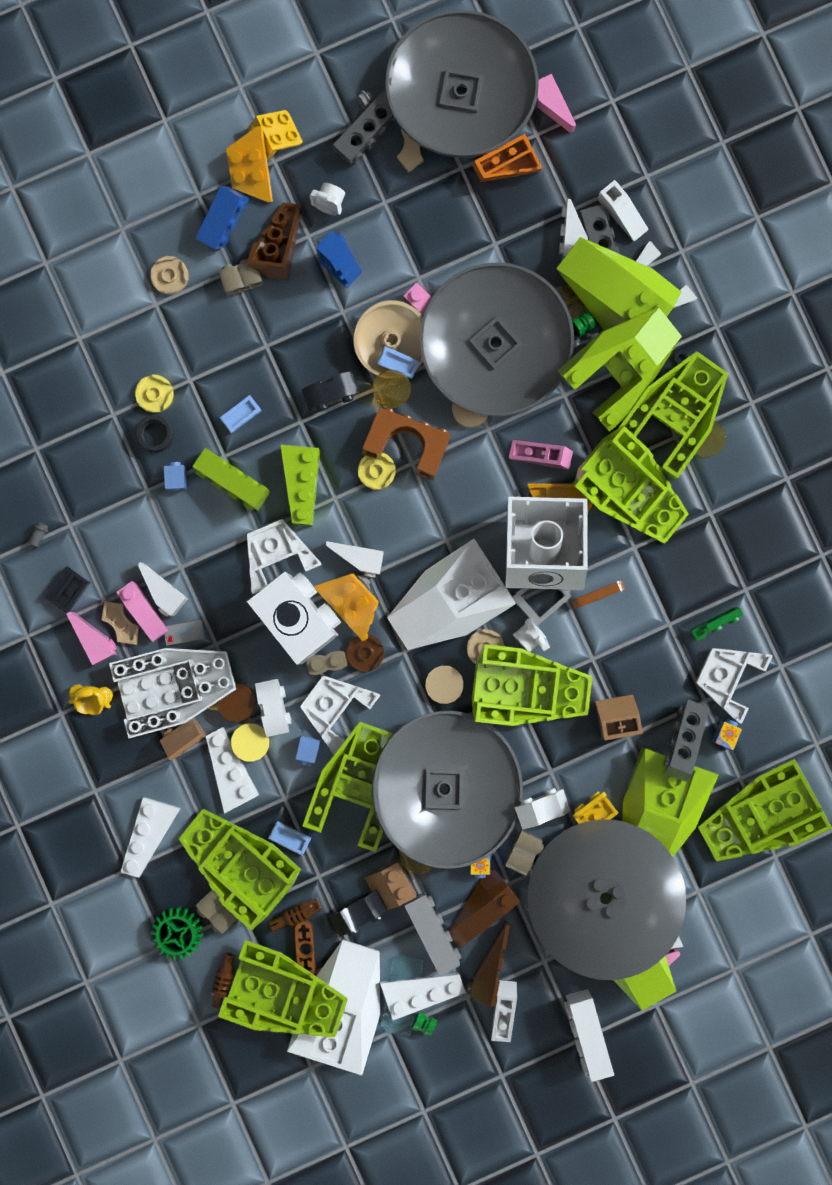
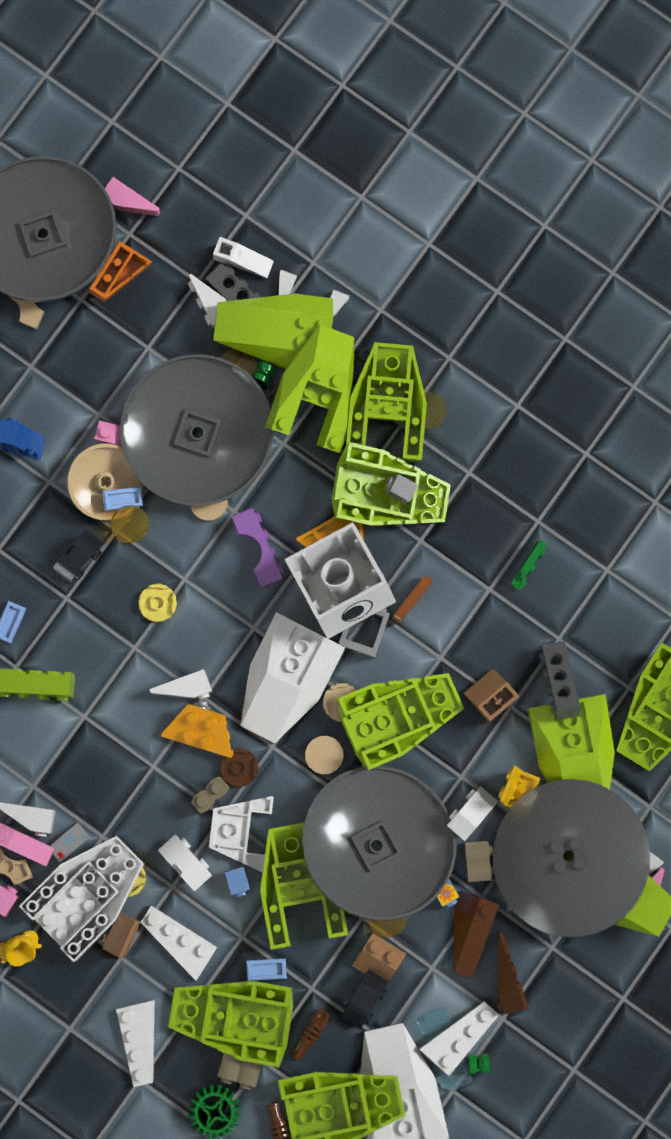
camera: 30 degrees left, 5 degrees down
(237, 704) = (152, 877): reddish brown tile -> none
(249, 742) = (182, 905): light yellow tile -> none
(273, 545) = (104, 719): white wing -> none
(293, 616) = (160, 770): white brick -> none
(299, 934) = (332, 1043): dark orange beam -> none
(301, 478) = (94, 645): lime wedge -> none
(389, 423) = (145, 556): dark orange arch -> none
(432, 933) = (440, 979): light grey brick -> none
(493, 449) = (248, 526): none -> medium lavender arch
(504, 1011) = (542, 1011): white slope -> none
(531, 636) = (375, 669): white piece -> none
(541, 454) = (293, 506): bright pink slope -> none
(590, 1038) = (629, 988): white brick -> none
(644, 492) = (400, 488): none -> light grey brick
(722, 673) = (559, 605): white wing -> none
(727, 734) = (594, 655): brick -> none

